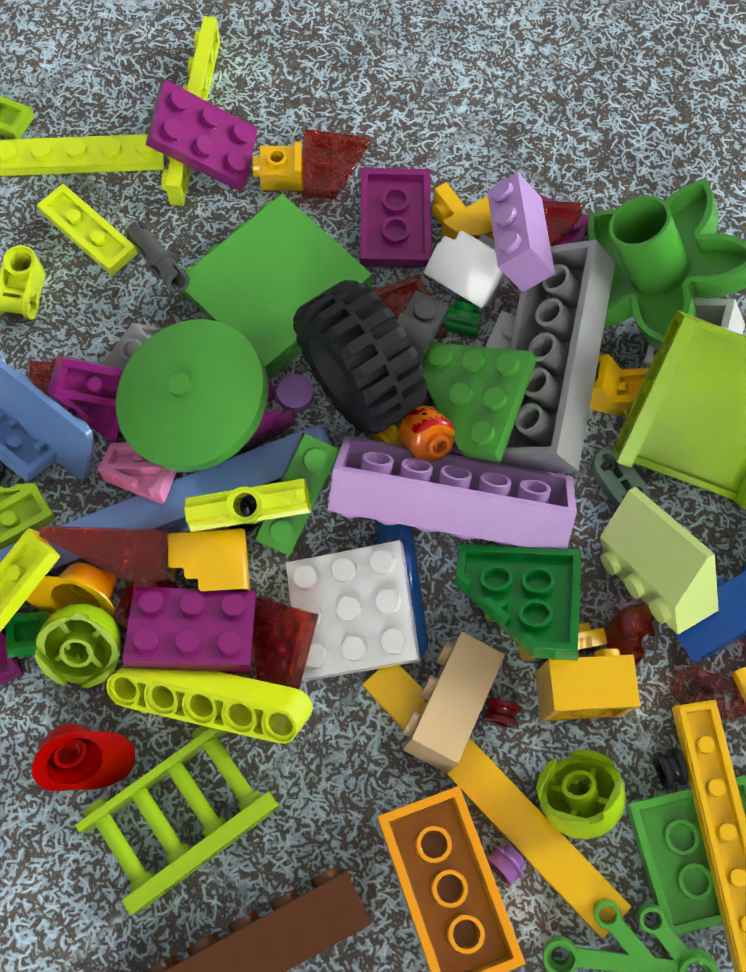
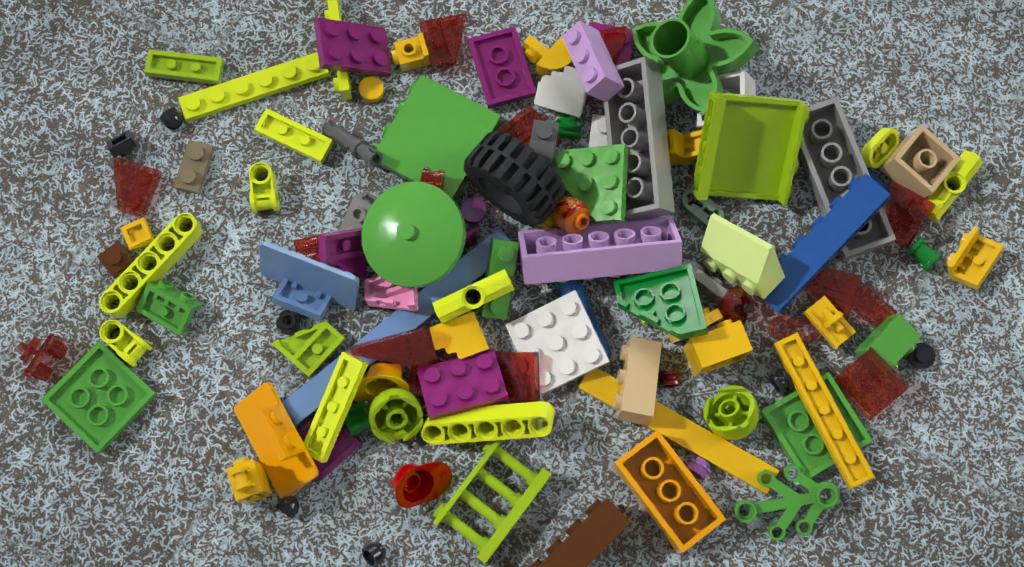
camera: 15 degrees left, 5 degrees up
(212, 199) = (371, 89): none -> yellow tile
(252, 329) = (433, 177): none -> clear red wheel
(601, 594) = (709, 286): none -> light grey plate

